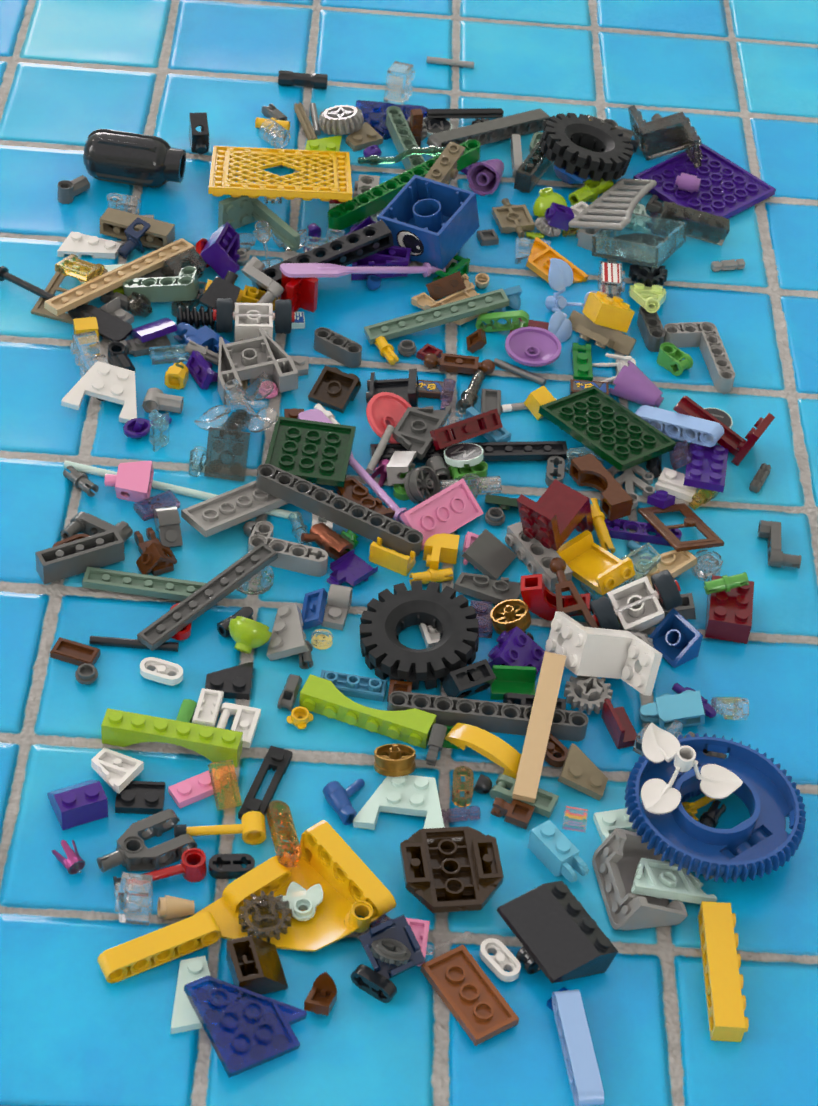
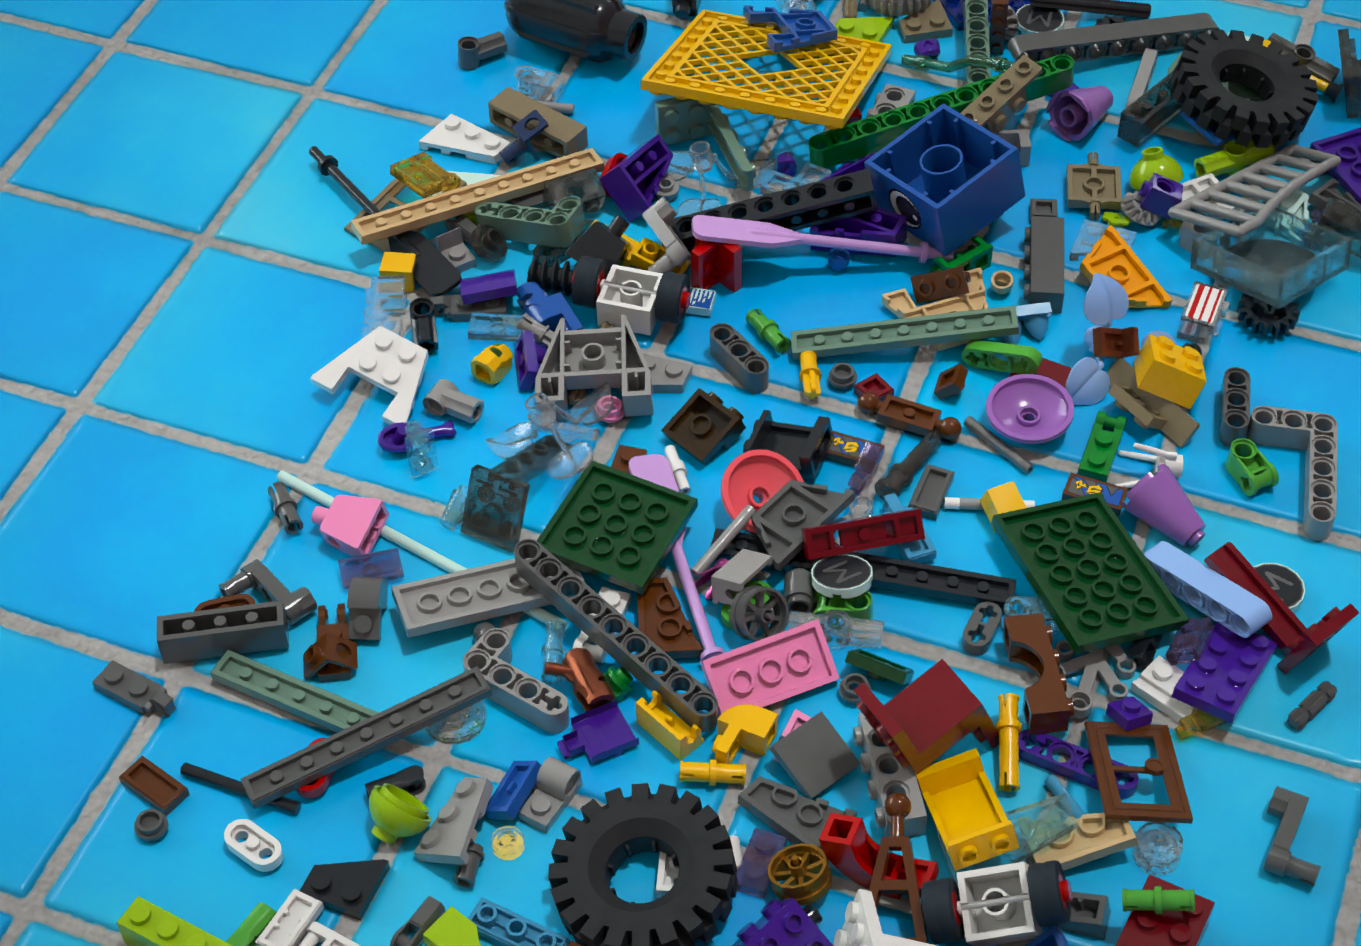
camera: 25 degrees right, 5 degrees up
(33, 603) = (133, 690): none -> dark grey hinge
(284, 147) = (798, 27): none -> blue wing
(348, 329) = (768, 330): none -> bright green pin
(503, 263) = (1045, 261): none -> dark grey brick
(570, 300) = (1115, 342): none -> copper bracket
(648, 296) = (1250, 353): yellowish green plate -> none

